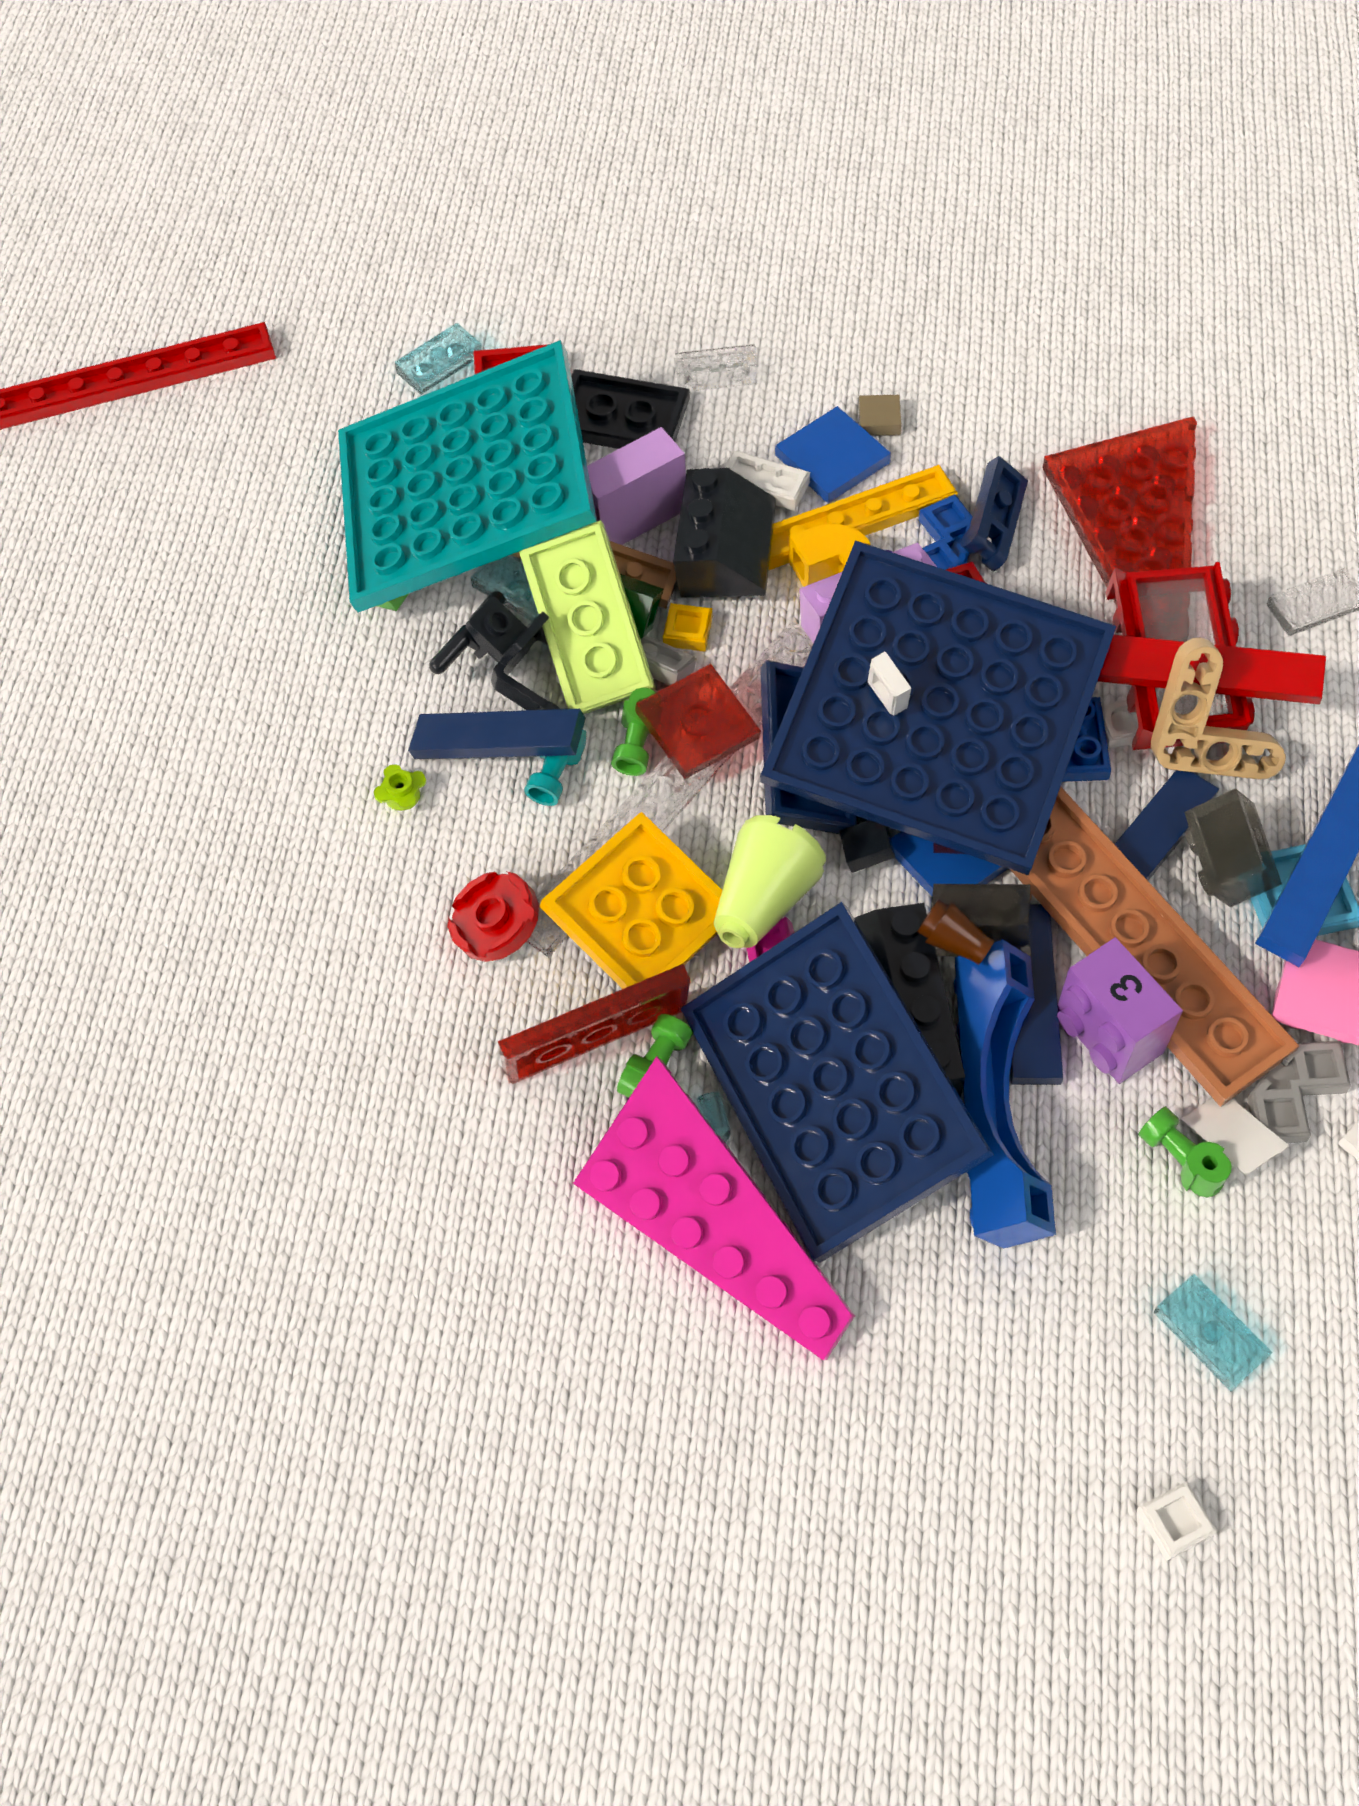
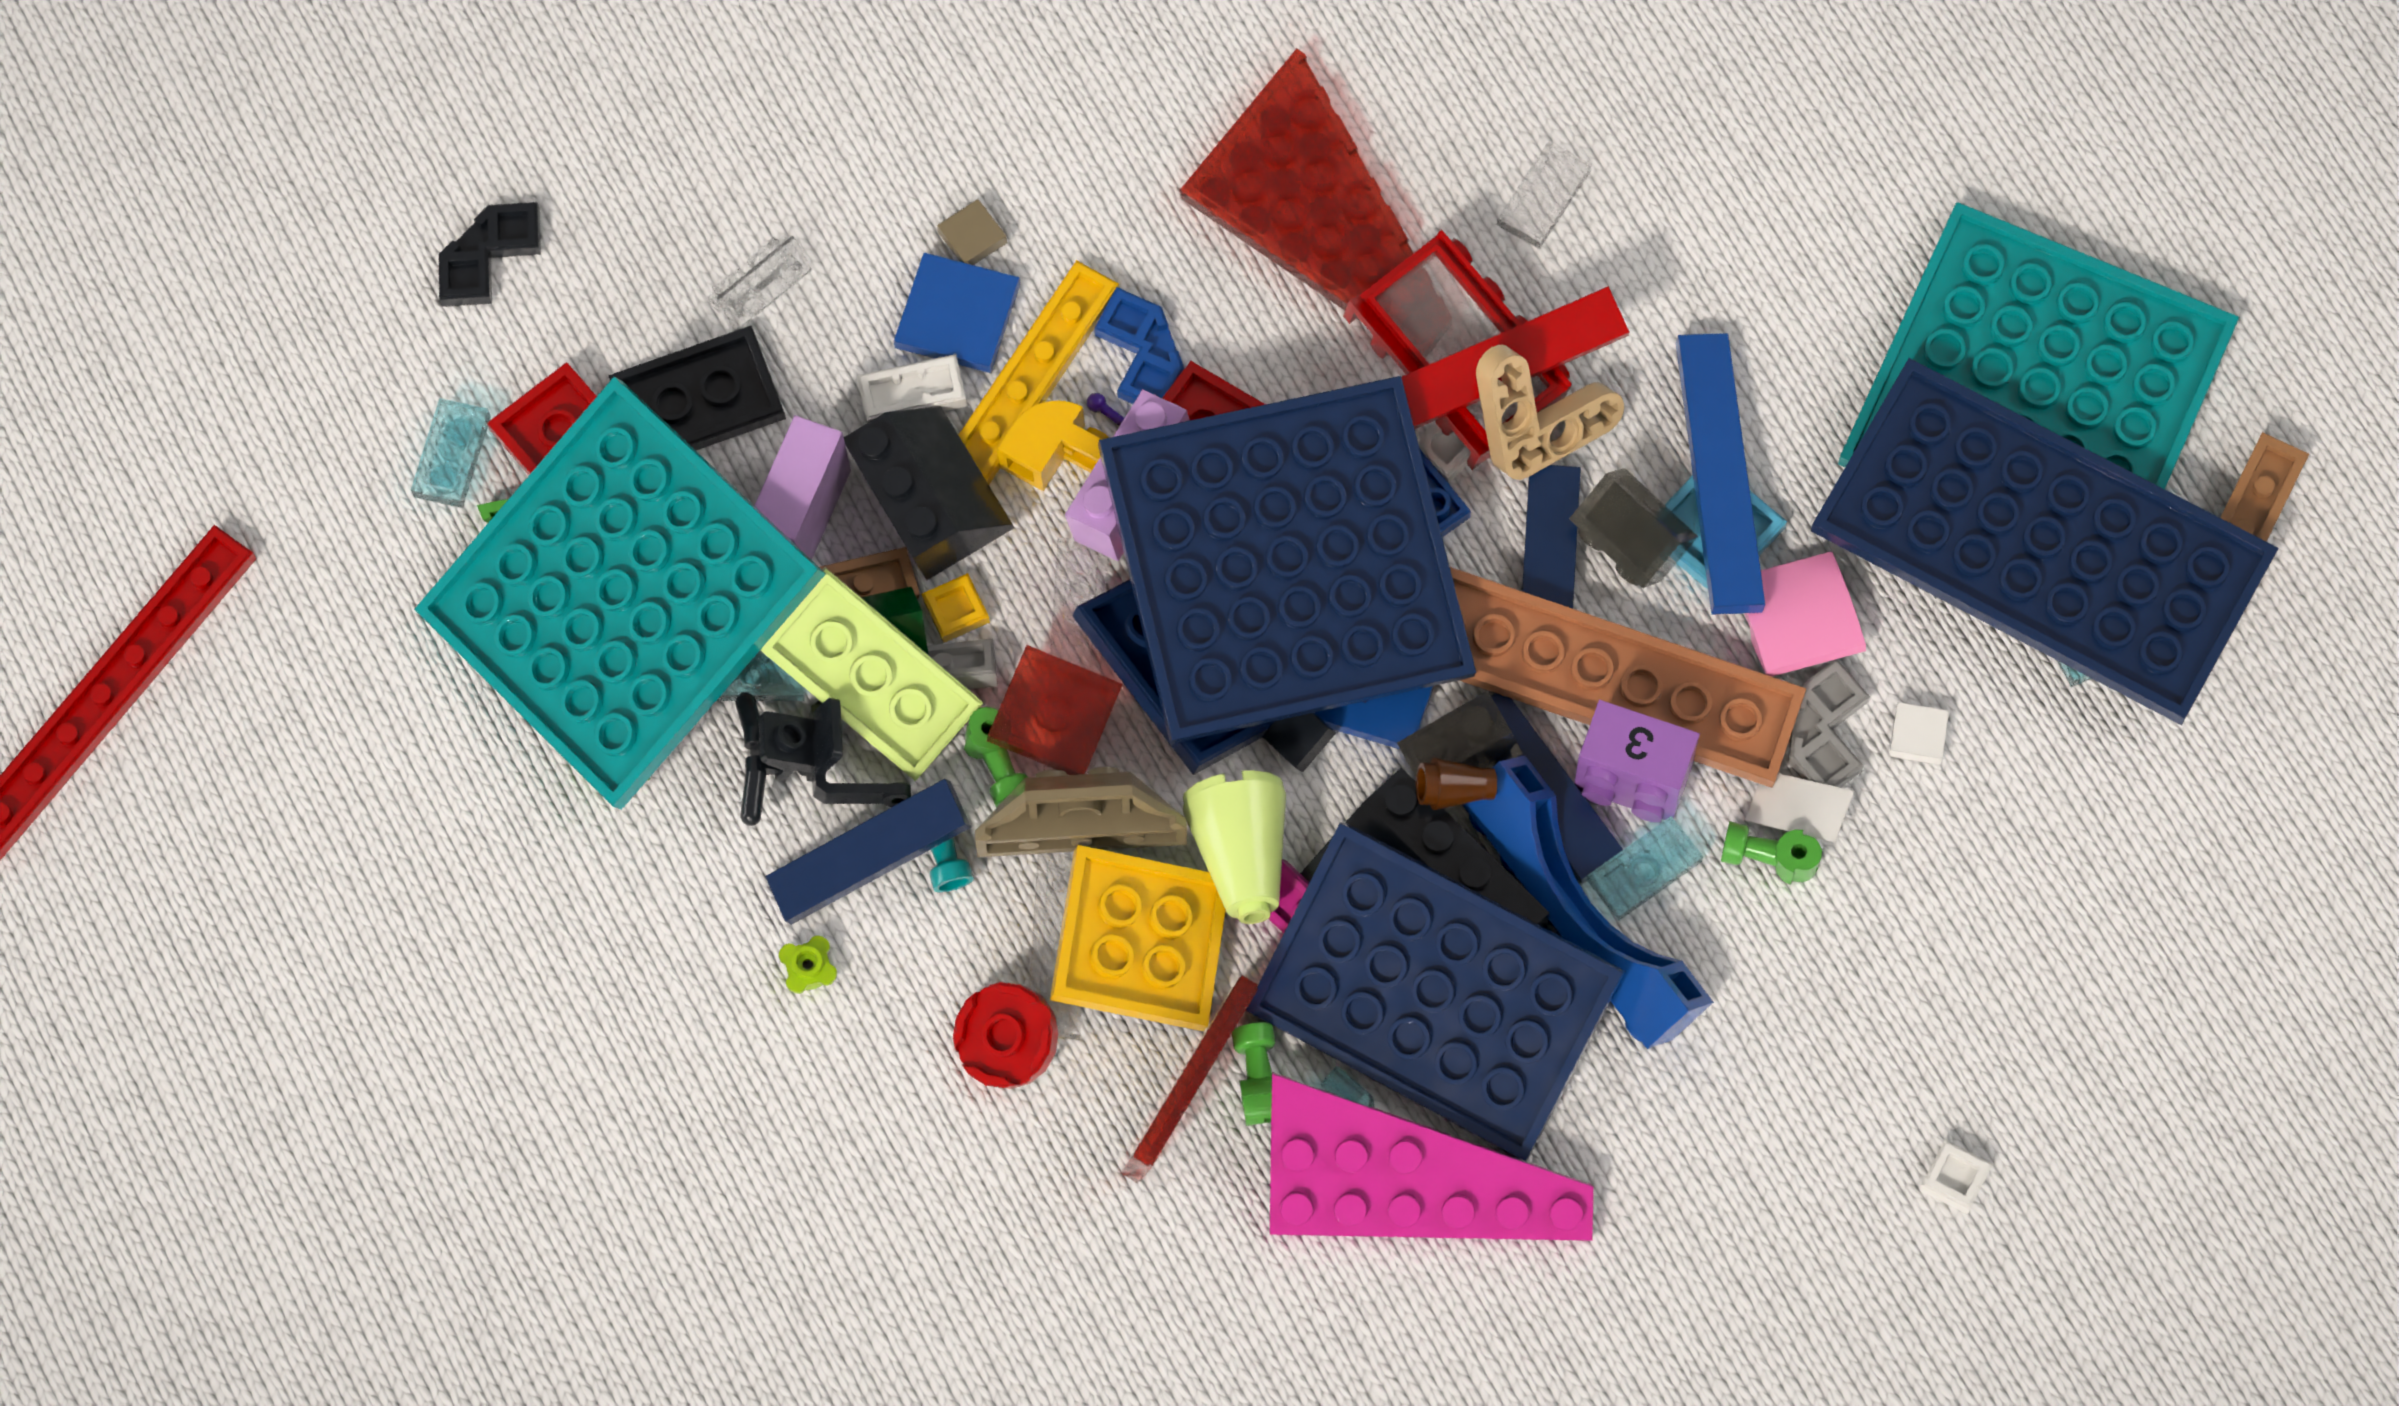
camera: 35 degrees left, 10 degrees up
(577, 262) = (497, 232): none -> black tile
(646, 779) = (1088, 810): none -> dark tan wedge
(889, 684) = (1237, 577): white tile -> none
(995, 513) = (1176, 288): dark blue plate -> none
(1071, 1100) = (1644, 868): none -> clear light blue plate
(1212, 1332) = (1888, 998): clear light blue plate -> none

